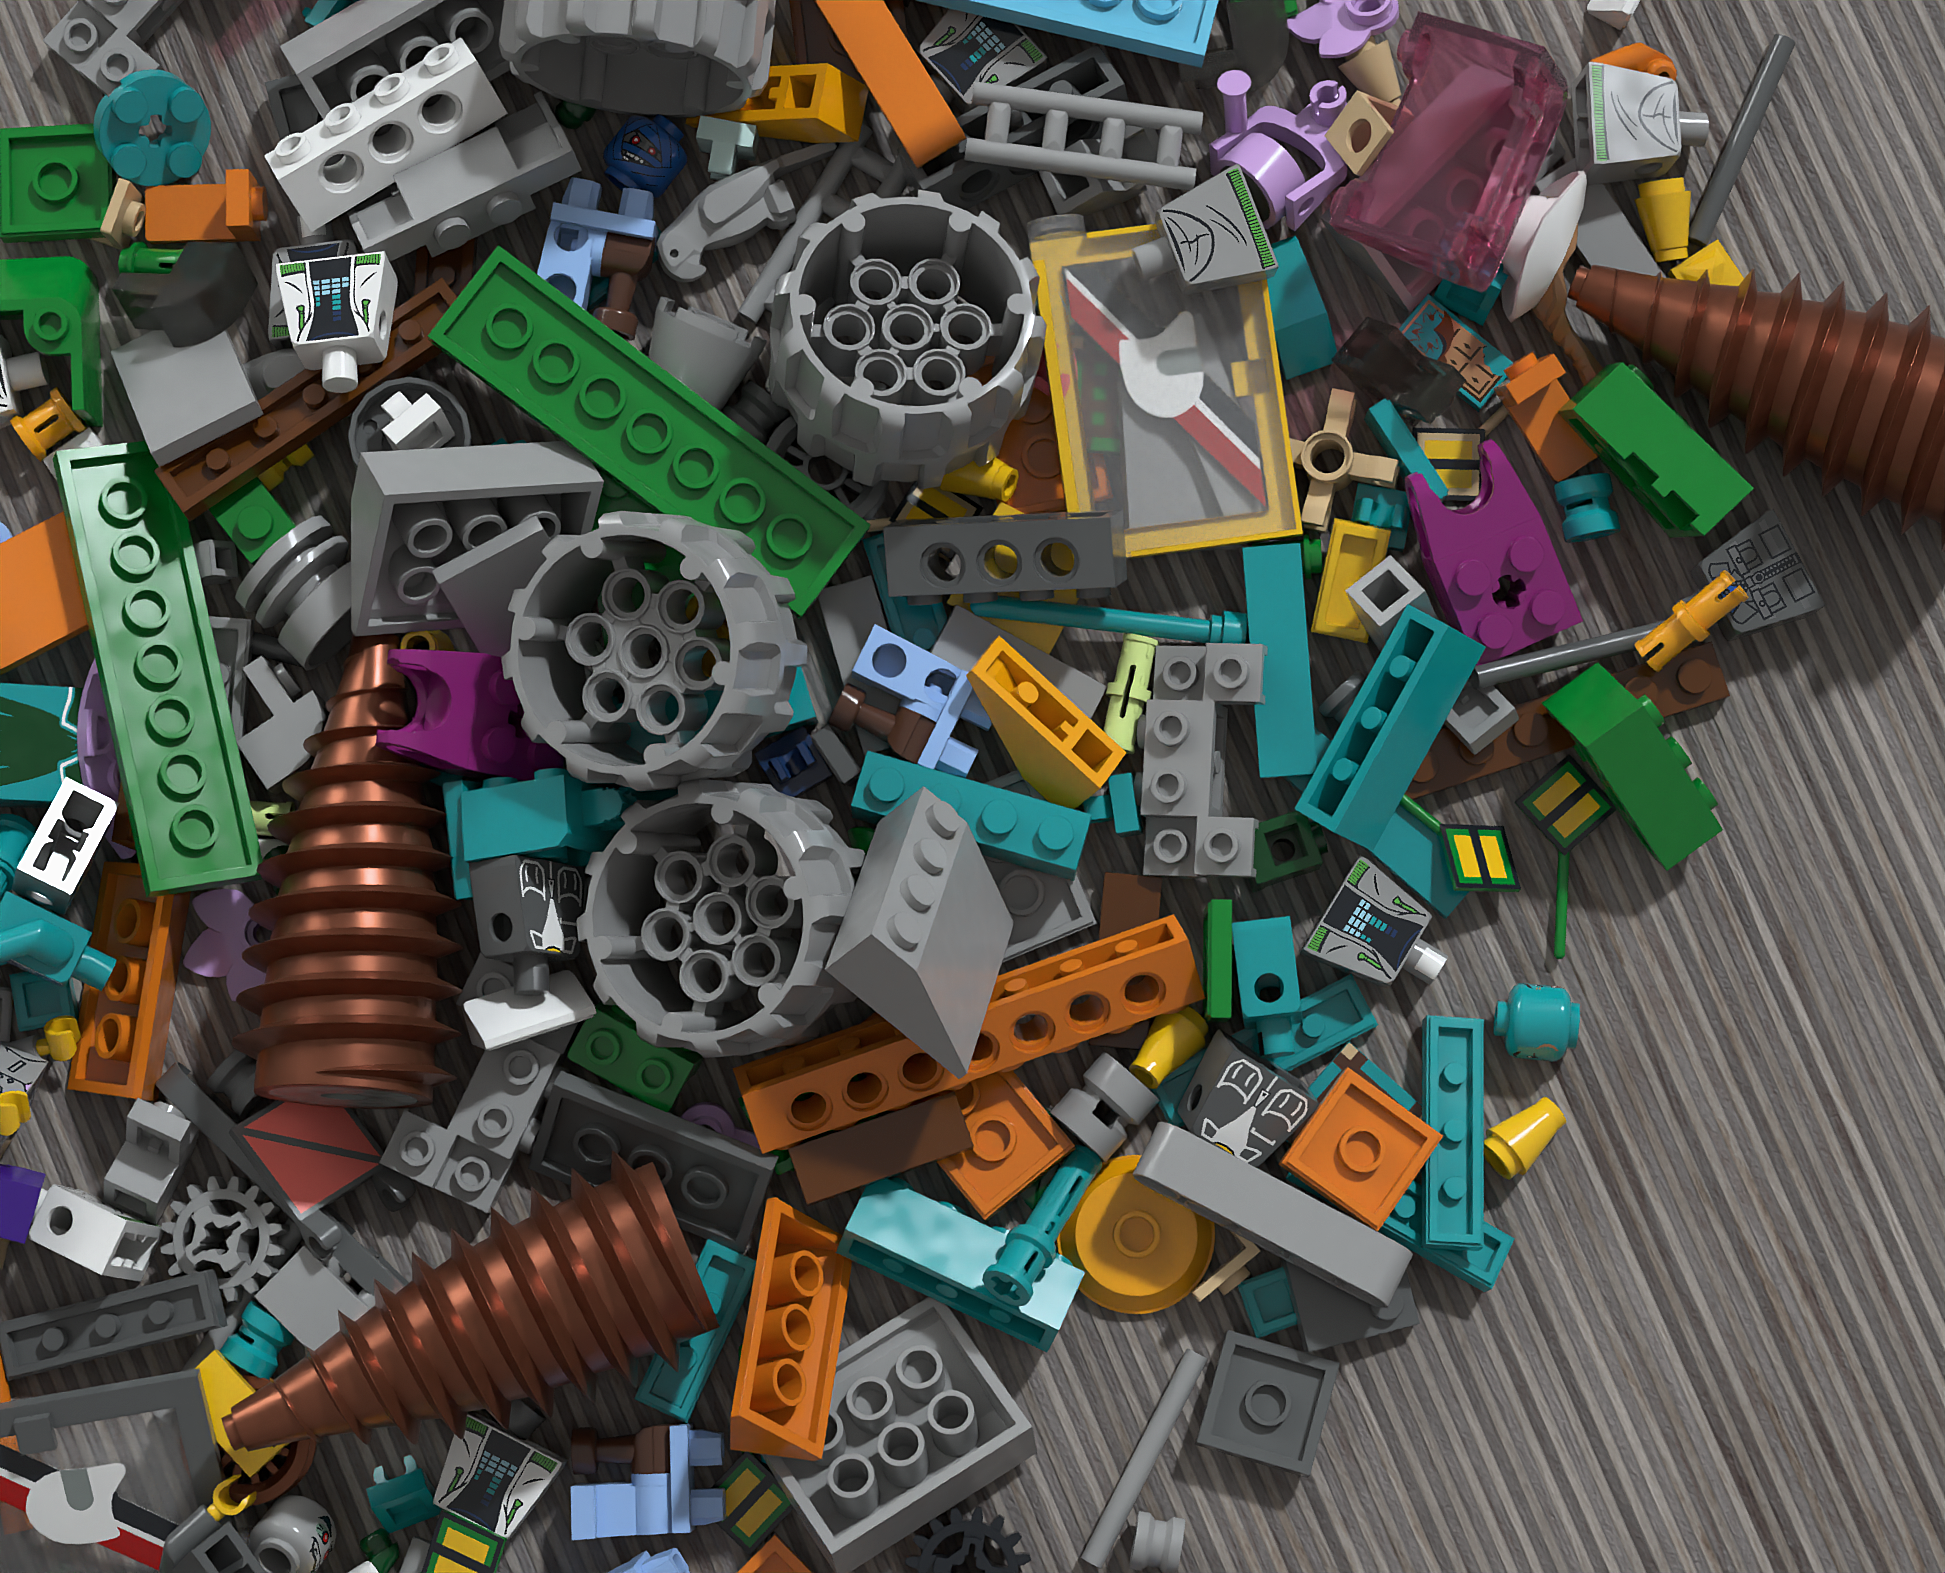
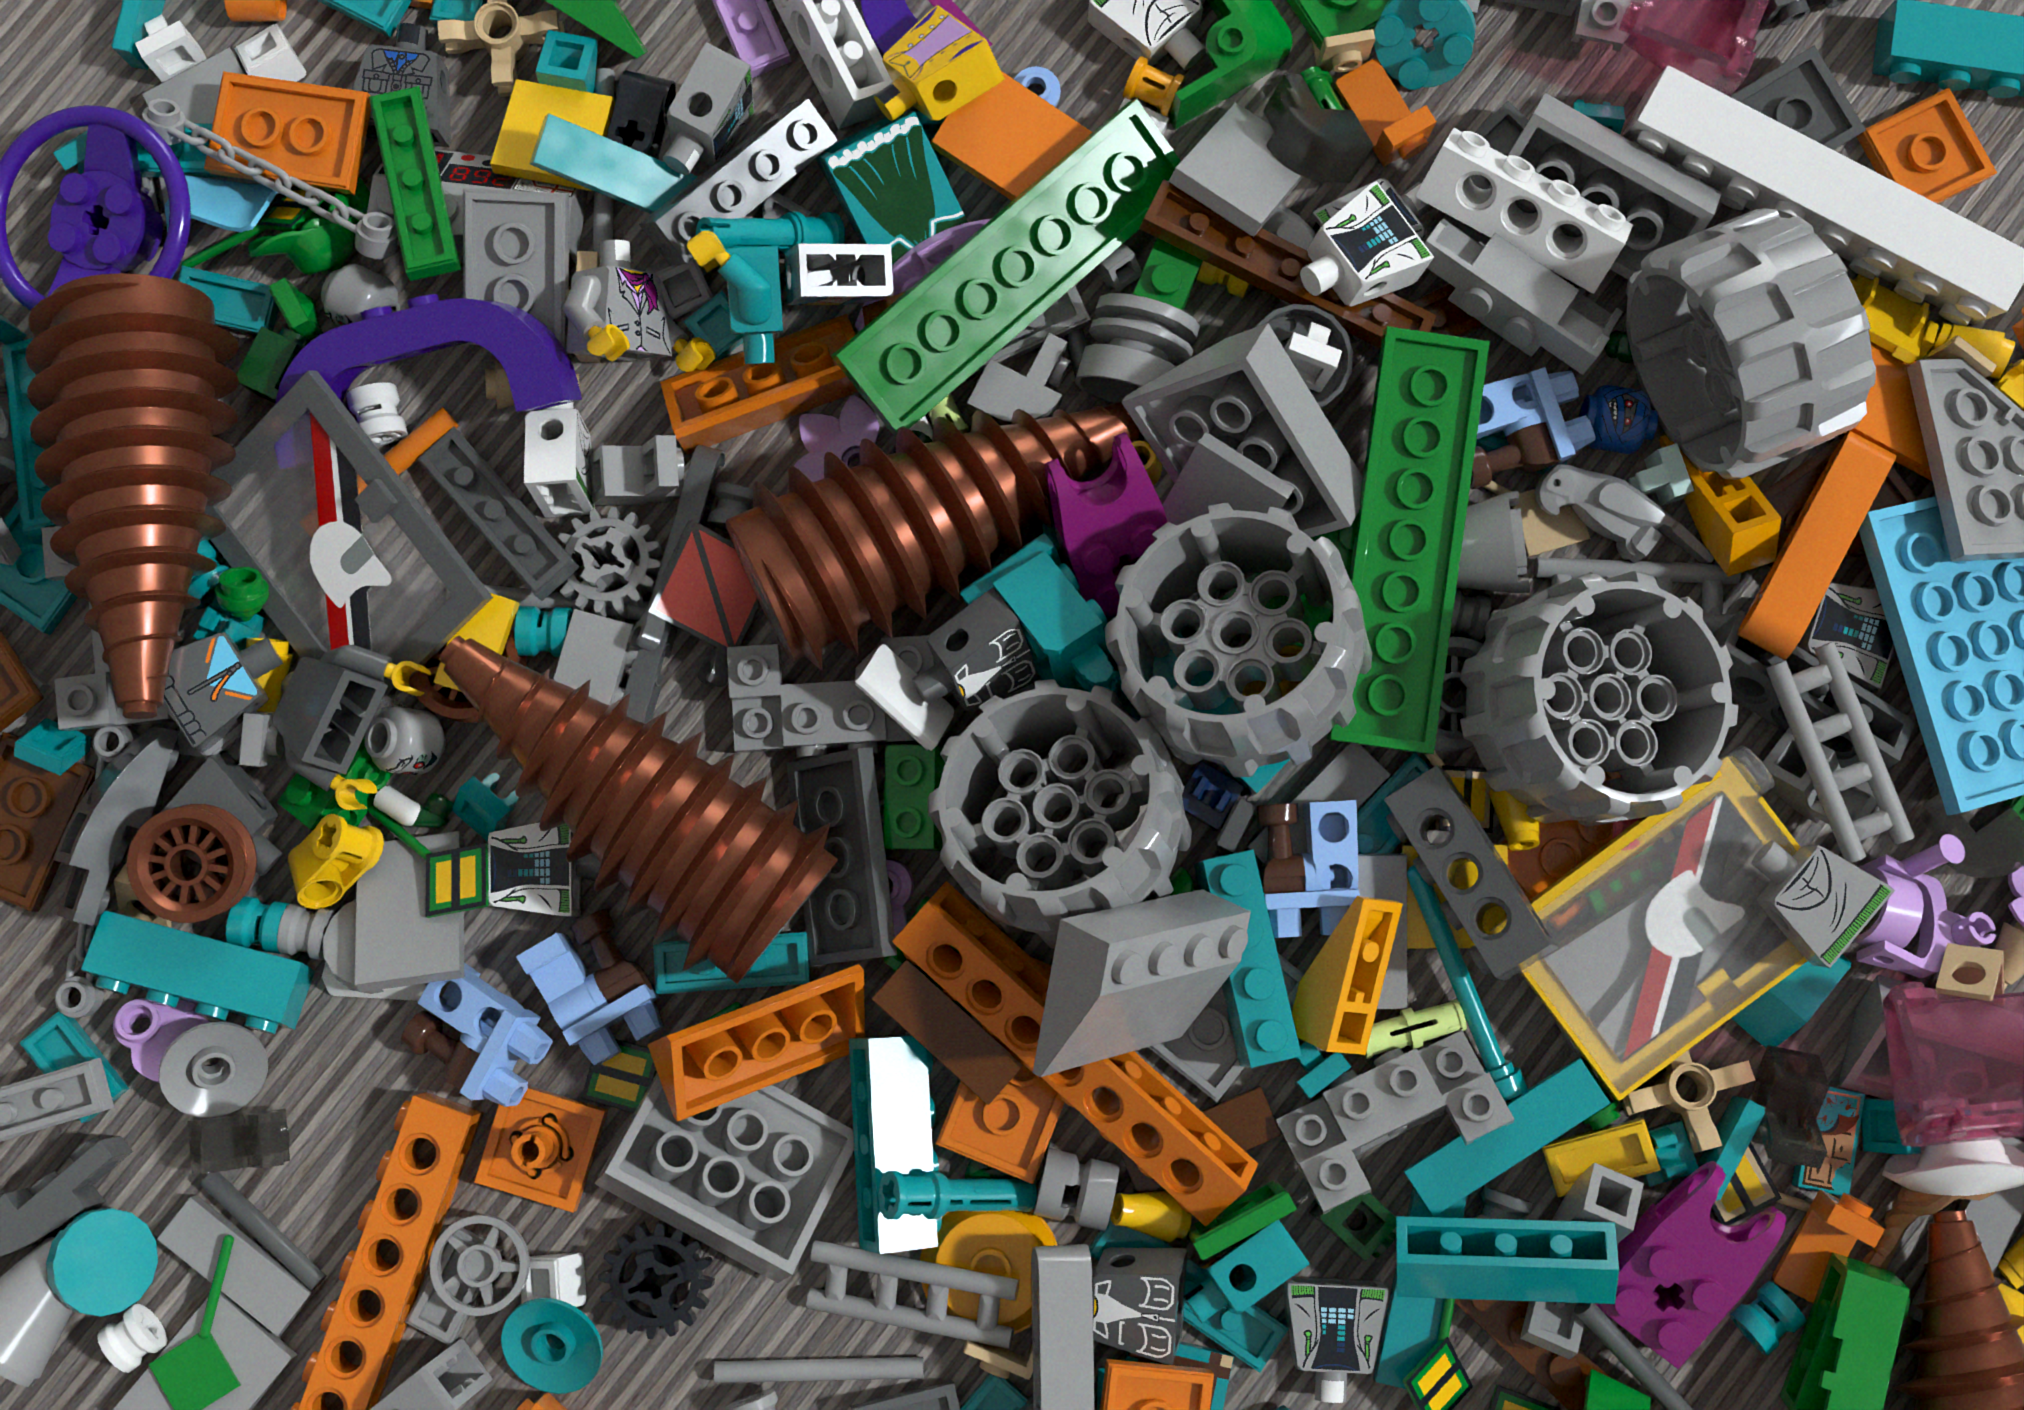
camera: 60 degrees right, 0 degrees up
(713, 292) = (1543, 530): none -> tan piece
(1113, 1288) = (939, 1278): none -> light grey bar

